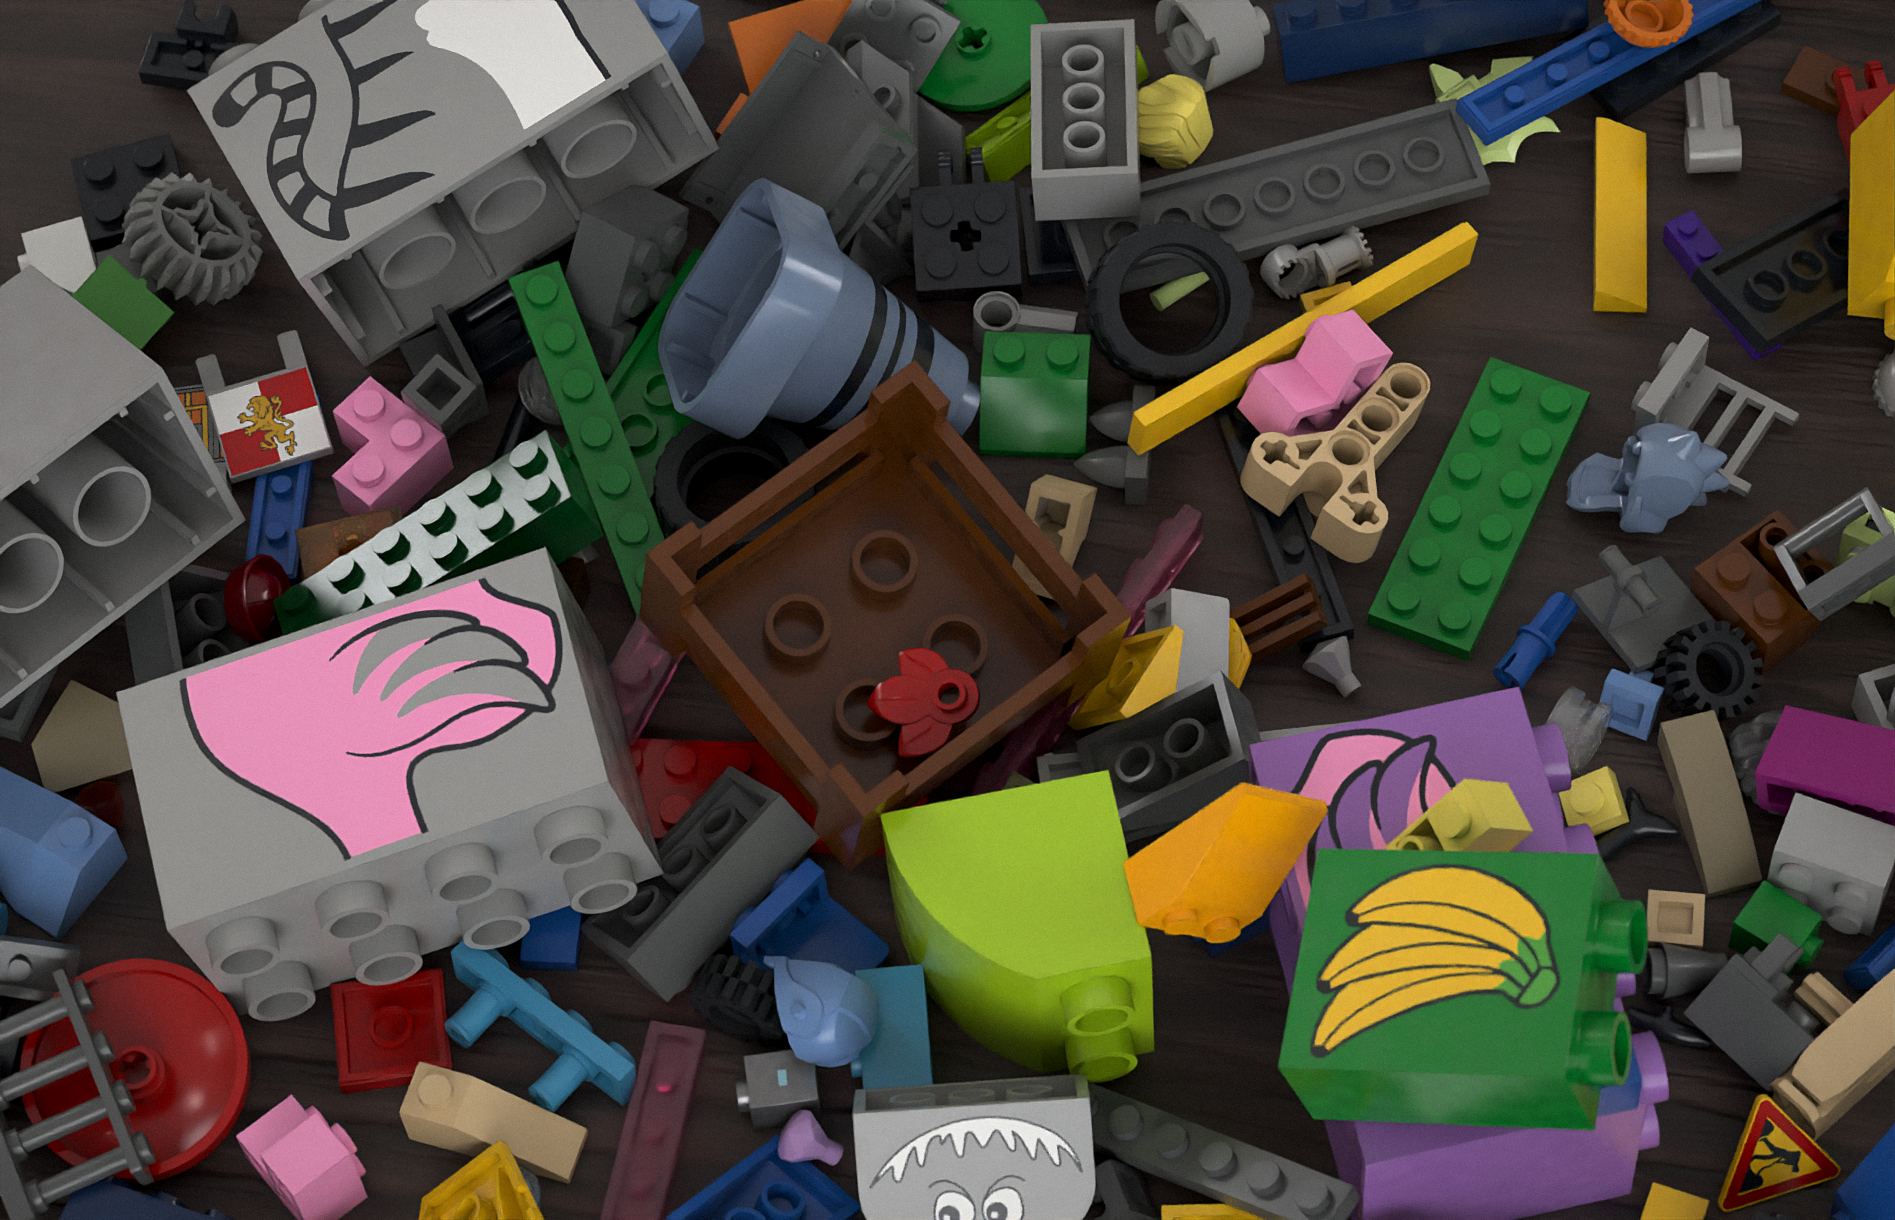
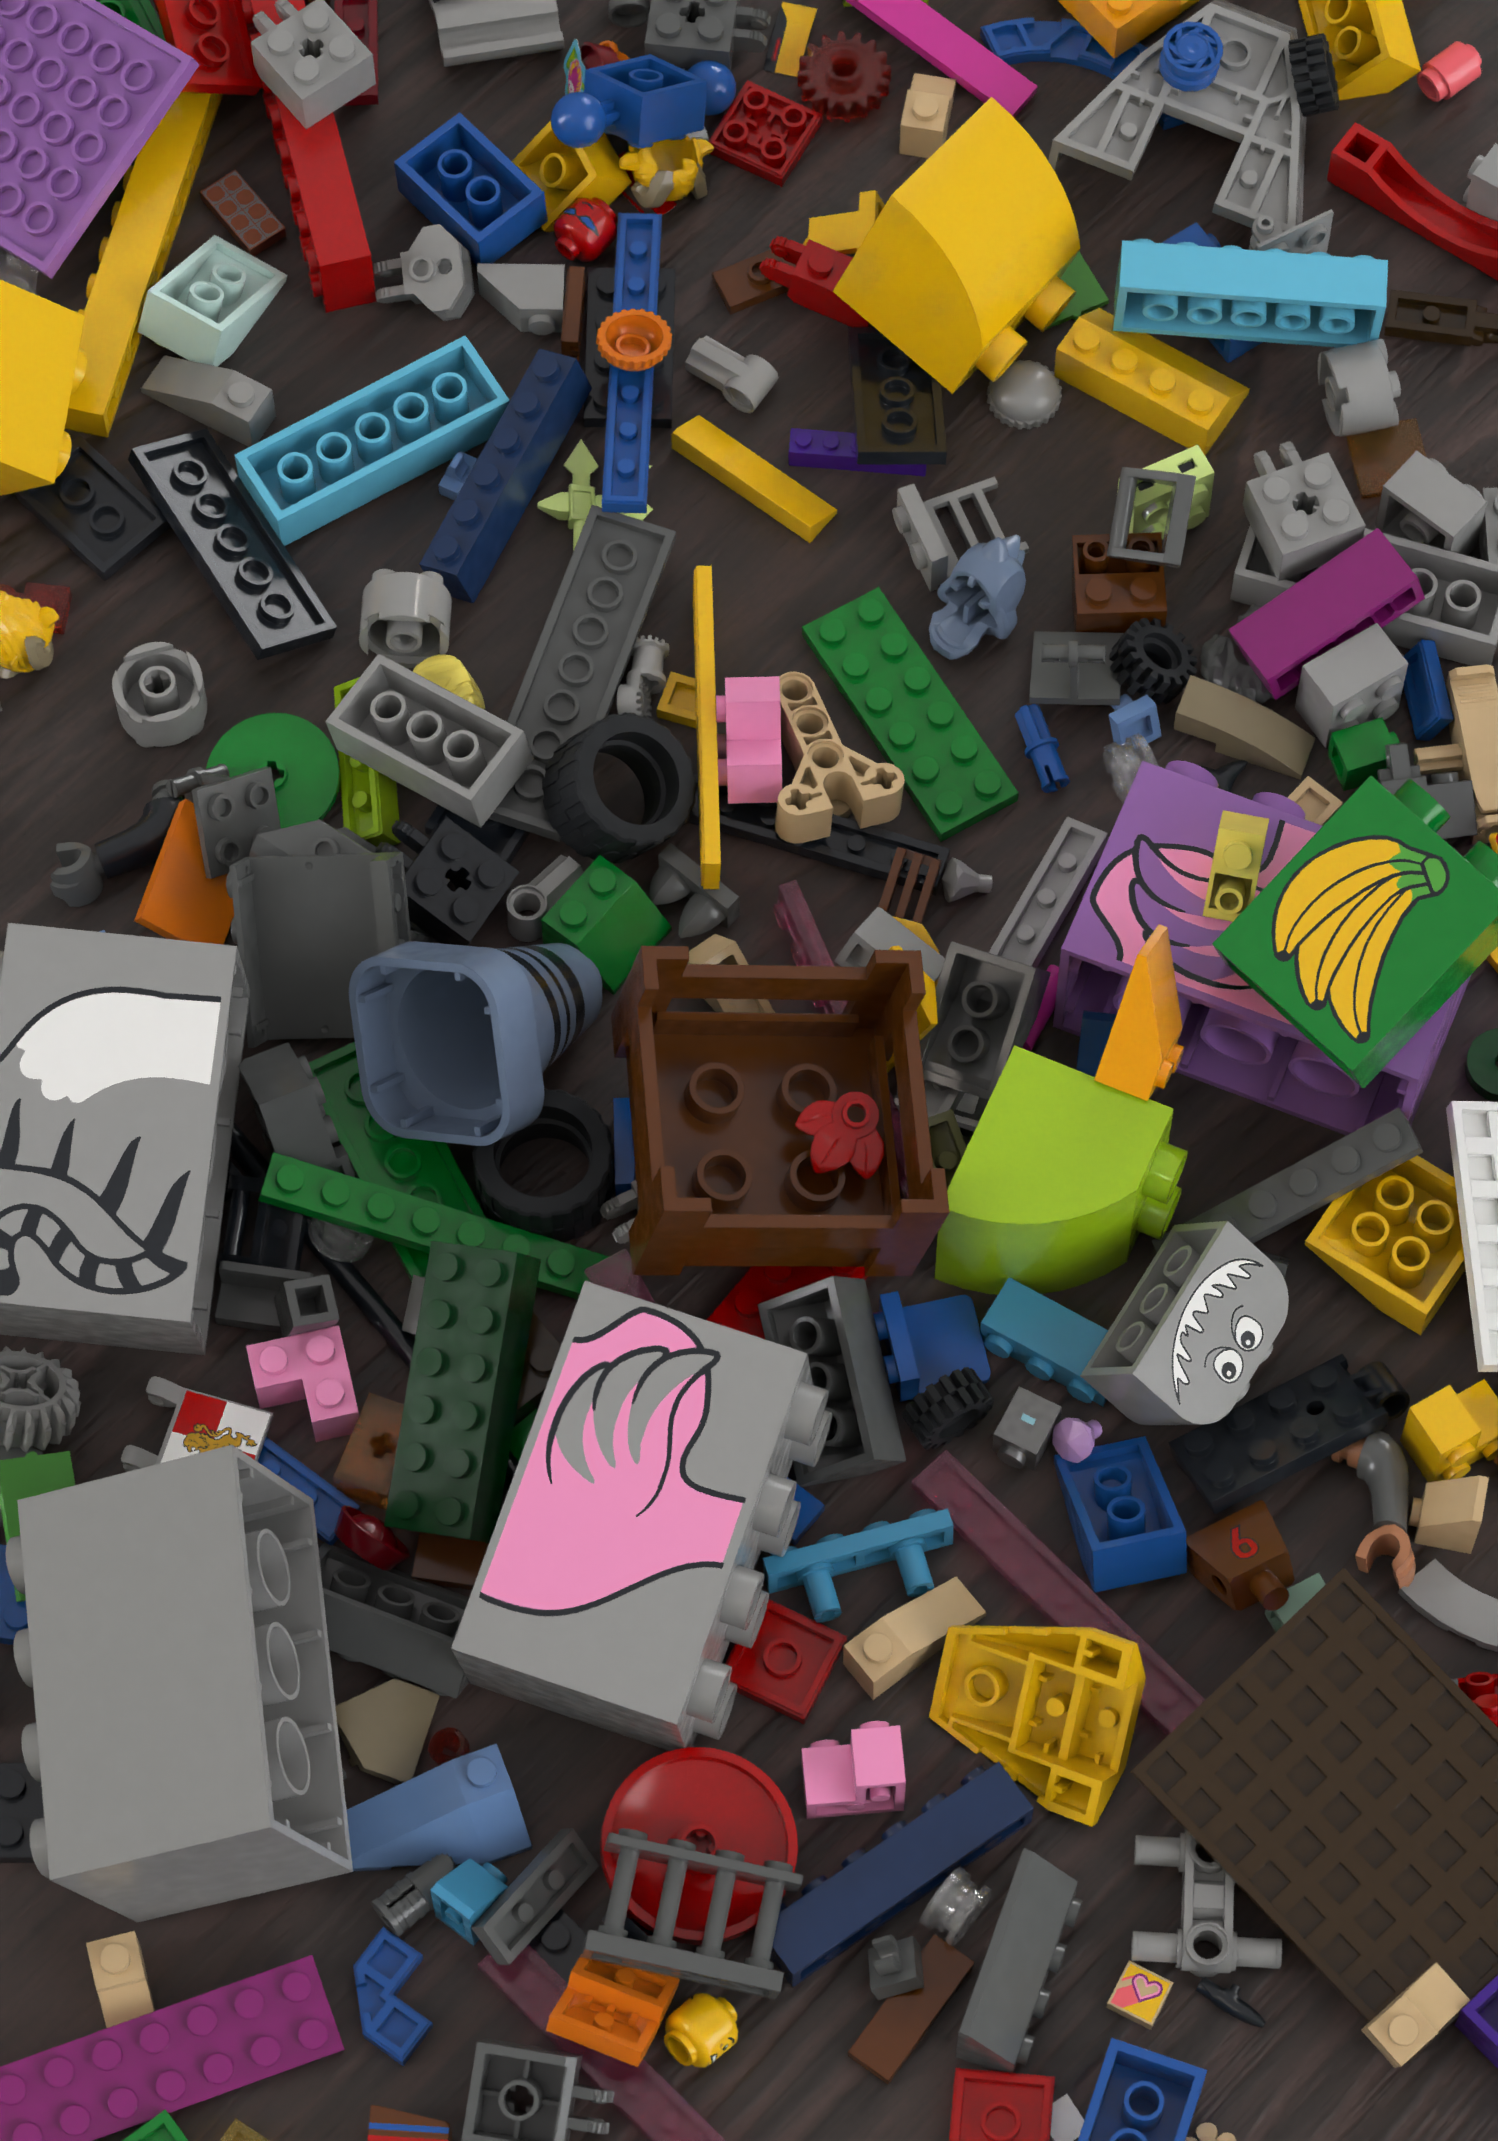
camera: 60 degrees left, 5 degrees up
(823, 1010) = (1009, 1352): medium blue helmet -> none

